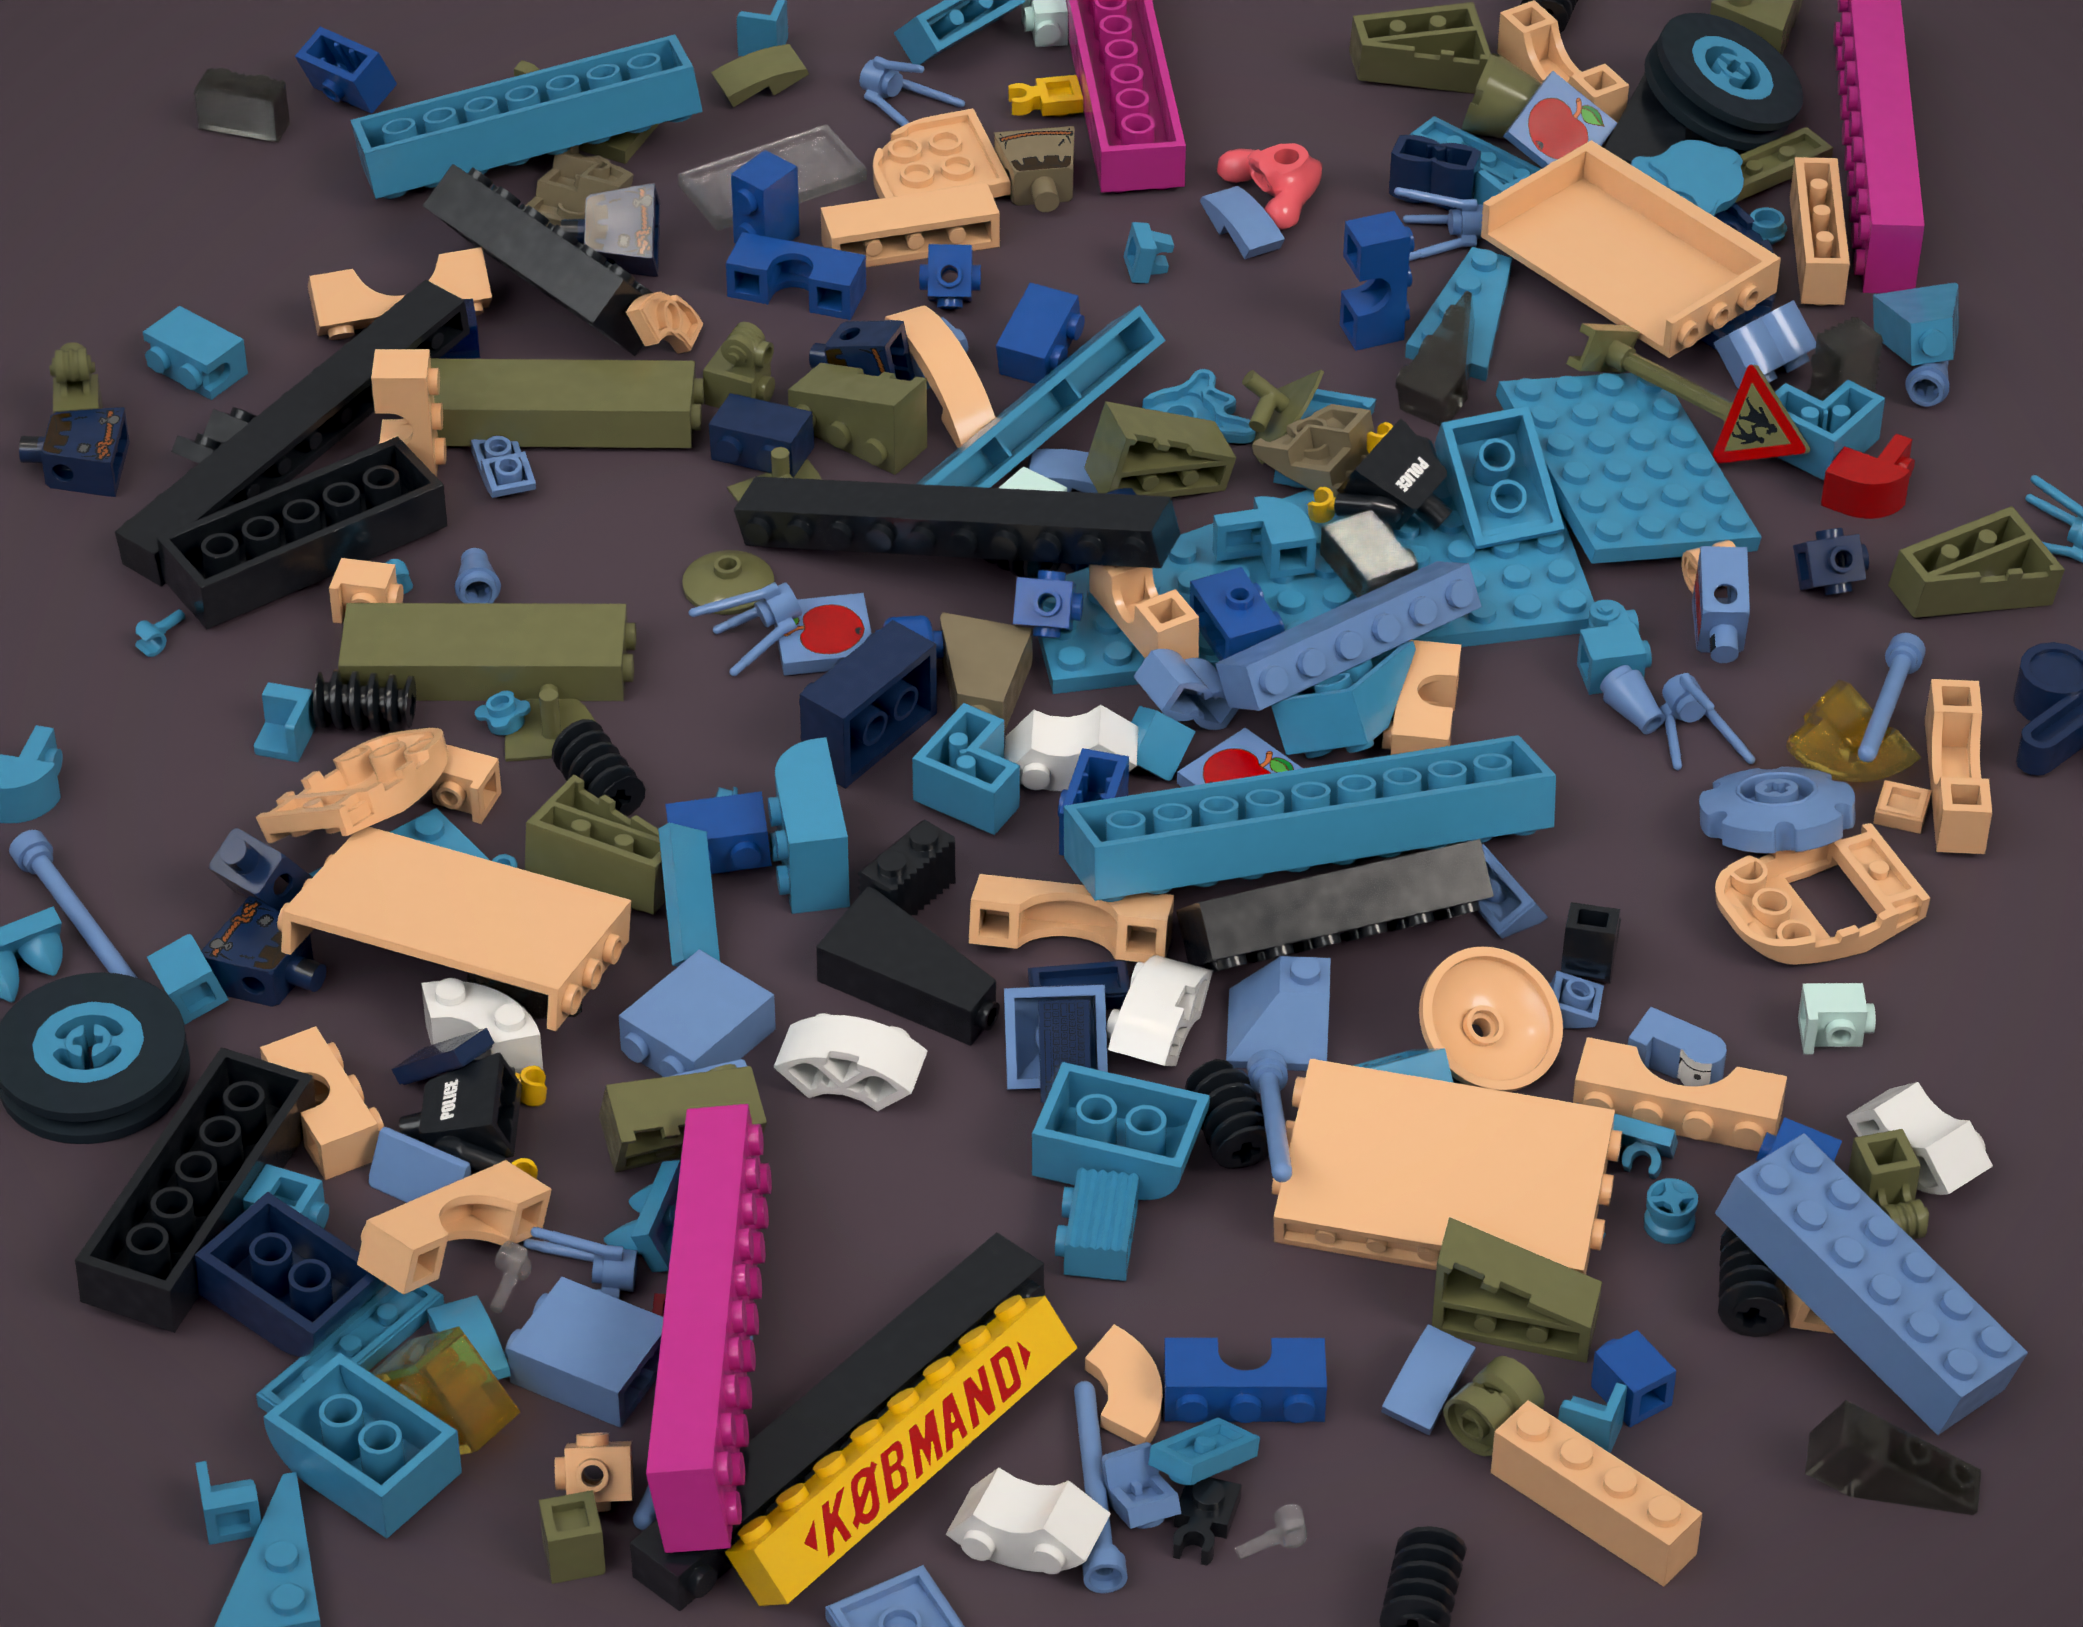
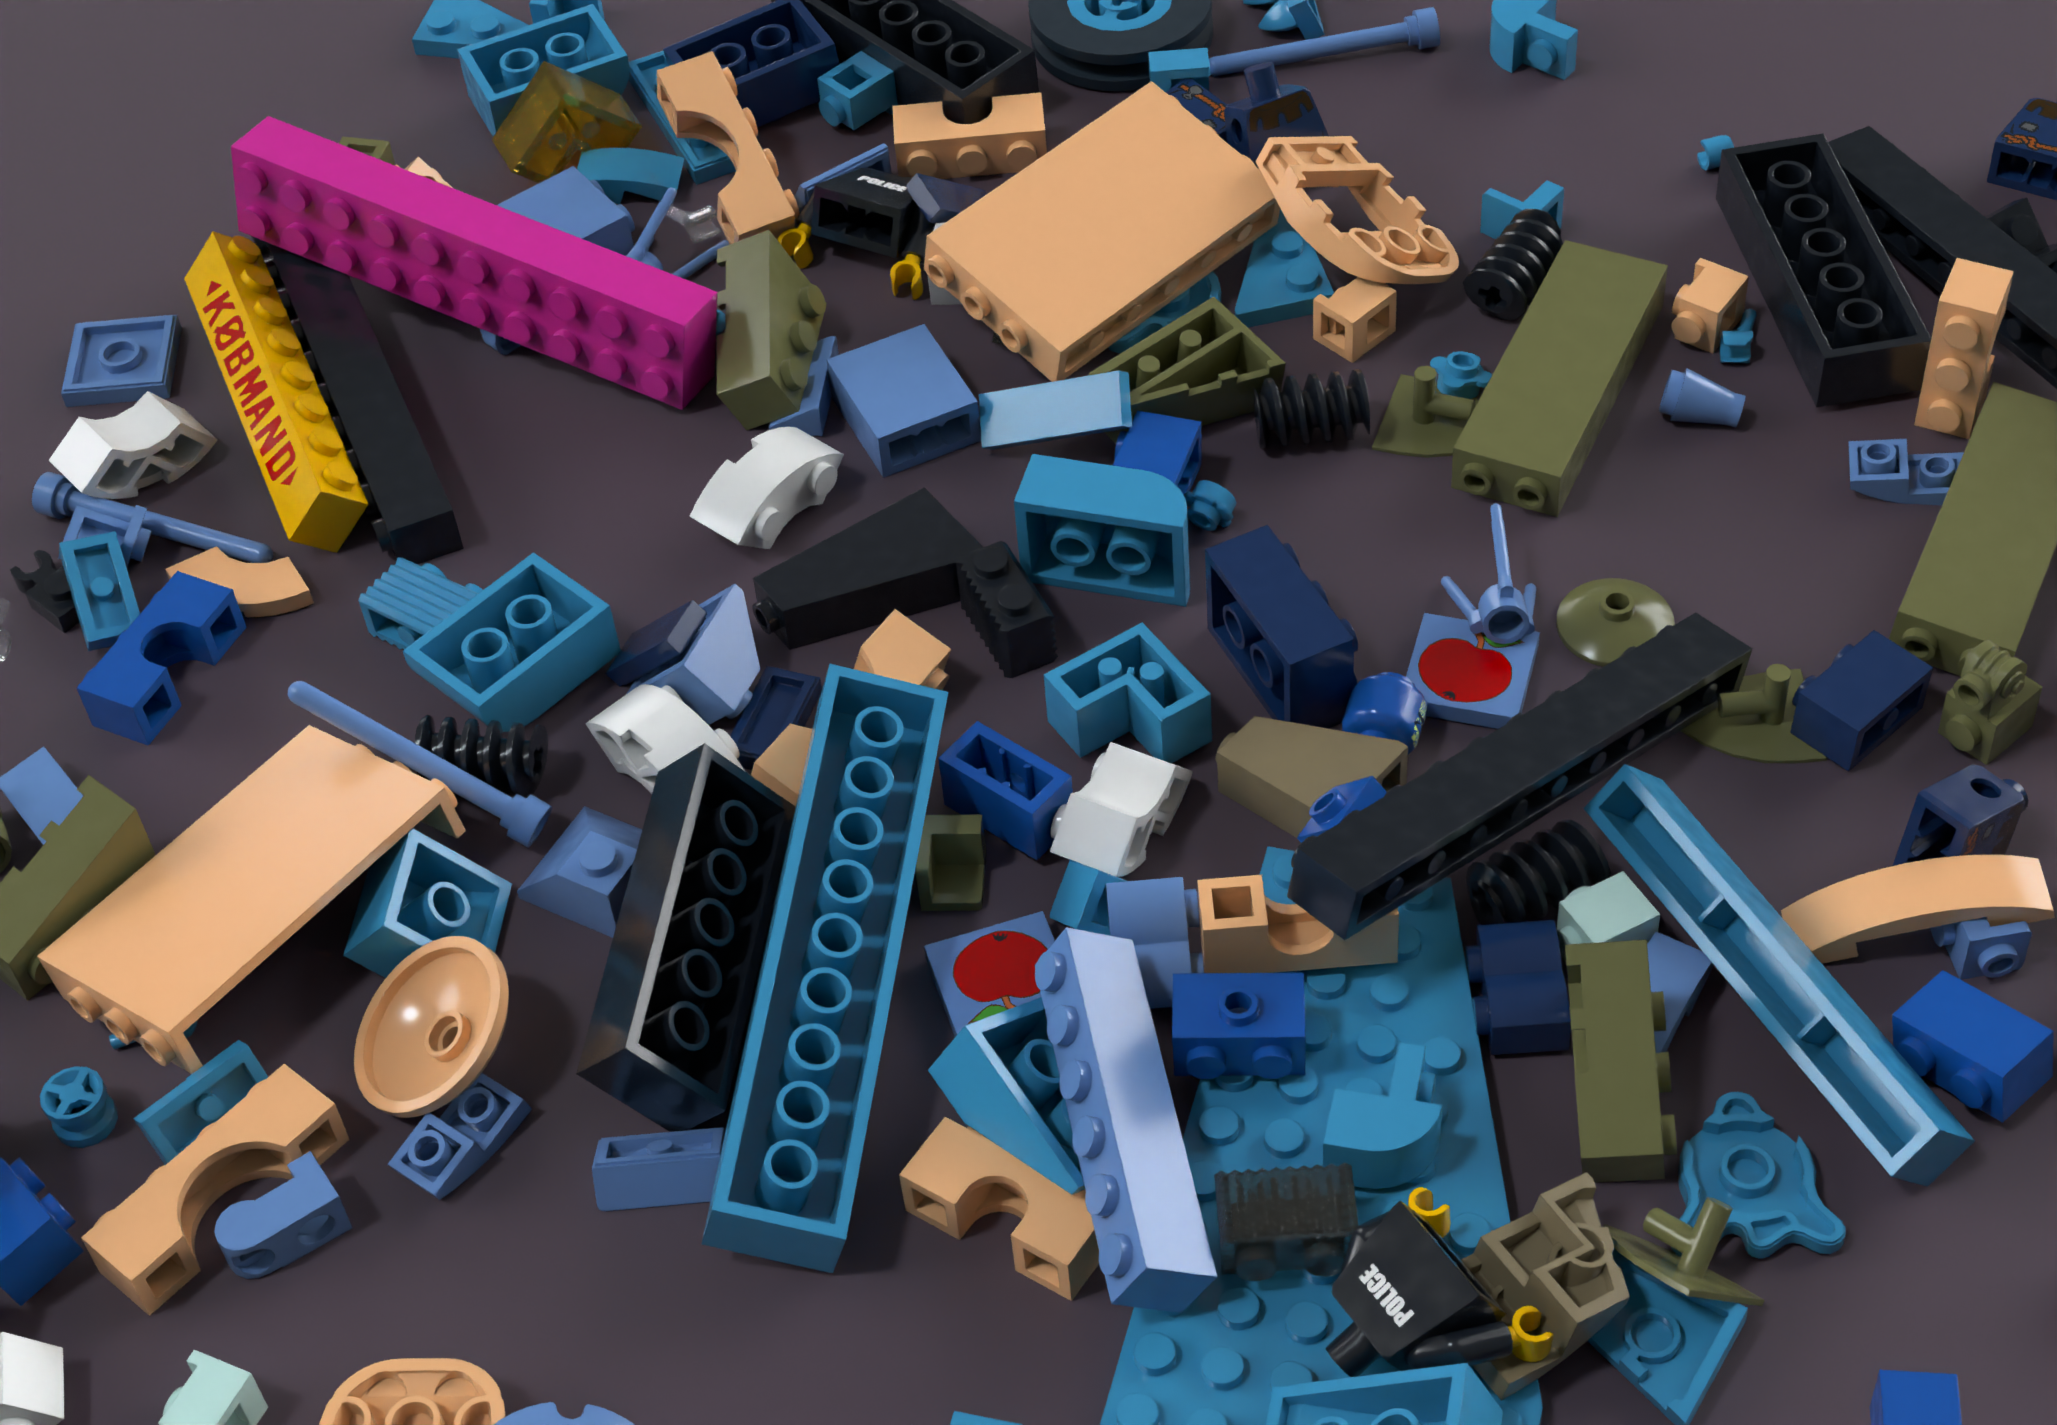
camera: 120 degrees right, 5 degrees up
(865, 414) = (1849, 799): olive wedge -> none
(1590, 942) = (474, 1186): black brick -> none

